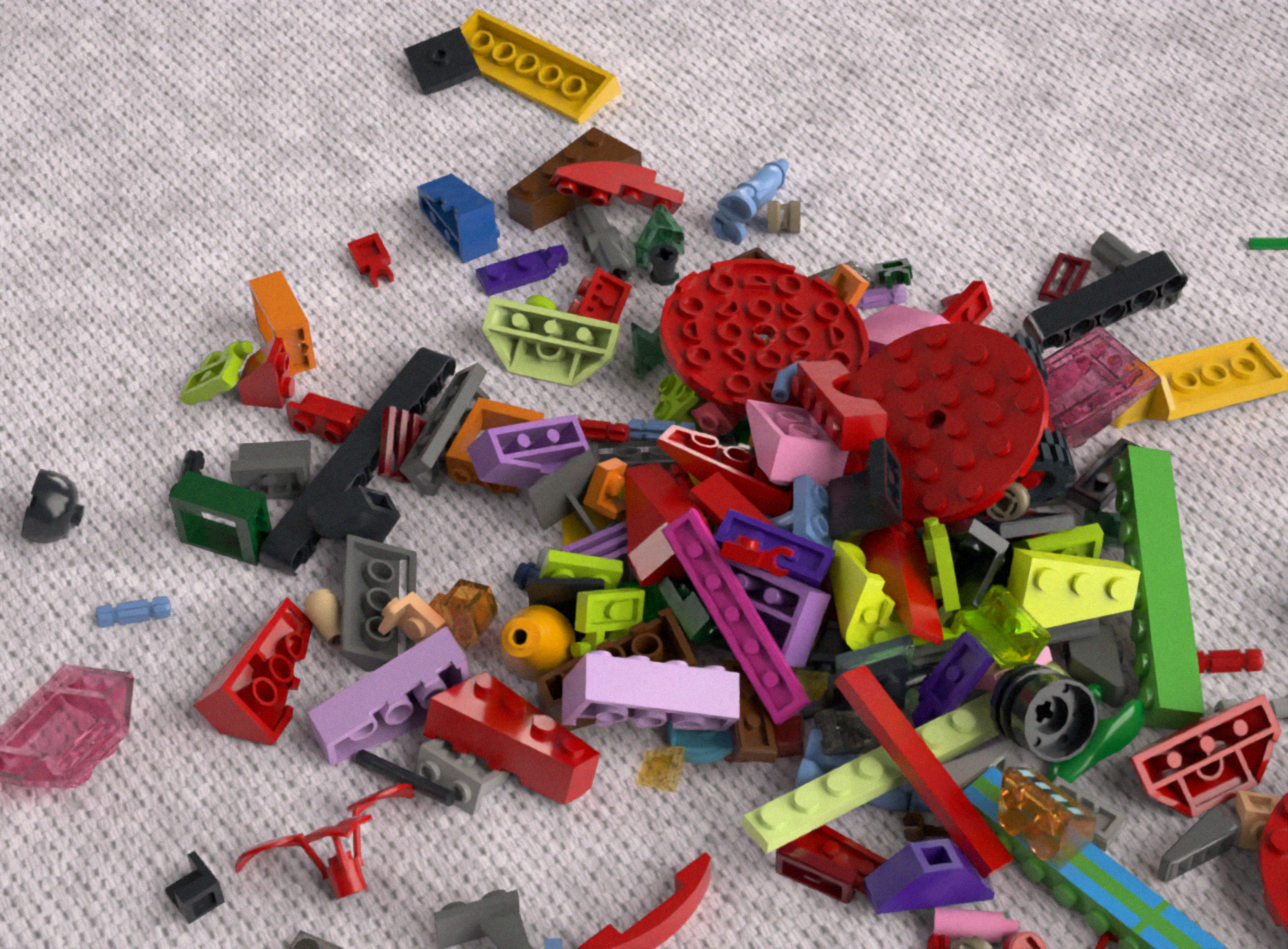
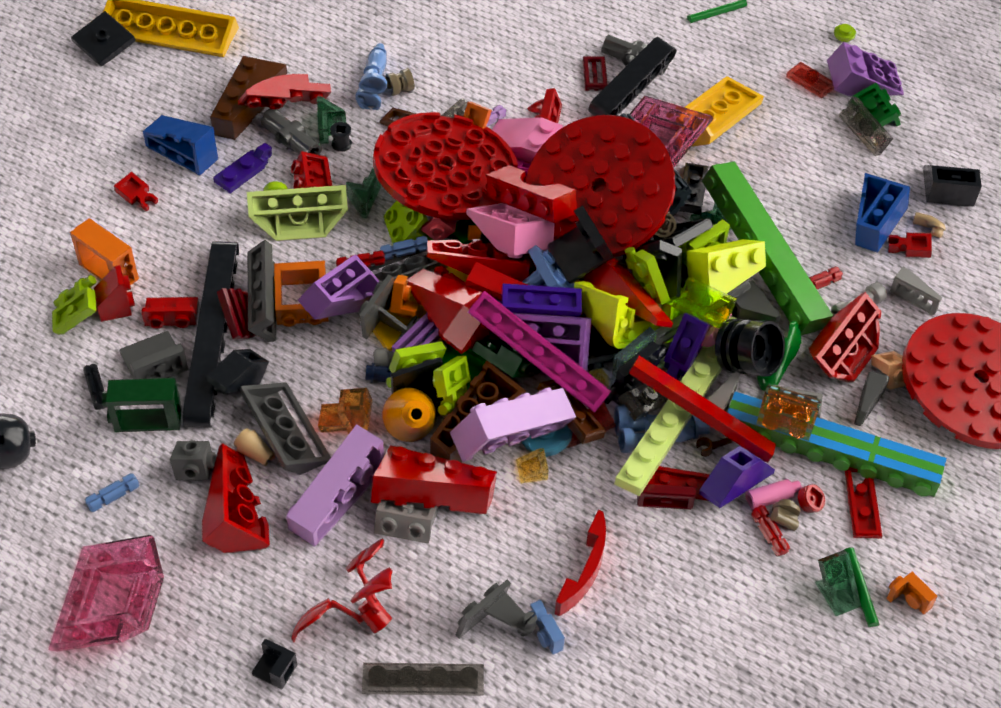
camera: 30 degrees left, 5 degrees up
(240, 605) = (192, 460): none -> dark grey brick
(402, 776) = (372, 535): black bar -> none
(412, 617) = (318, 427): light nougat bracket -> none
(747, 551) = (533, 307): red plate -> none
(782, 384) = (479, 189): medium blue arm -> none
(894, 272) = (492, 98): dark green plate -> none

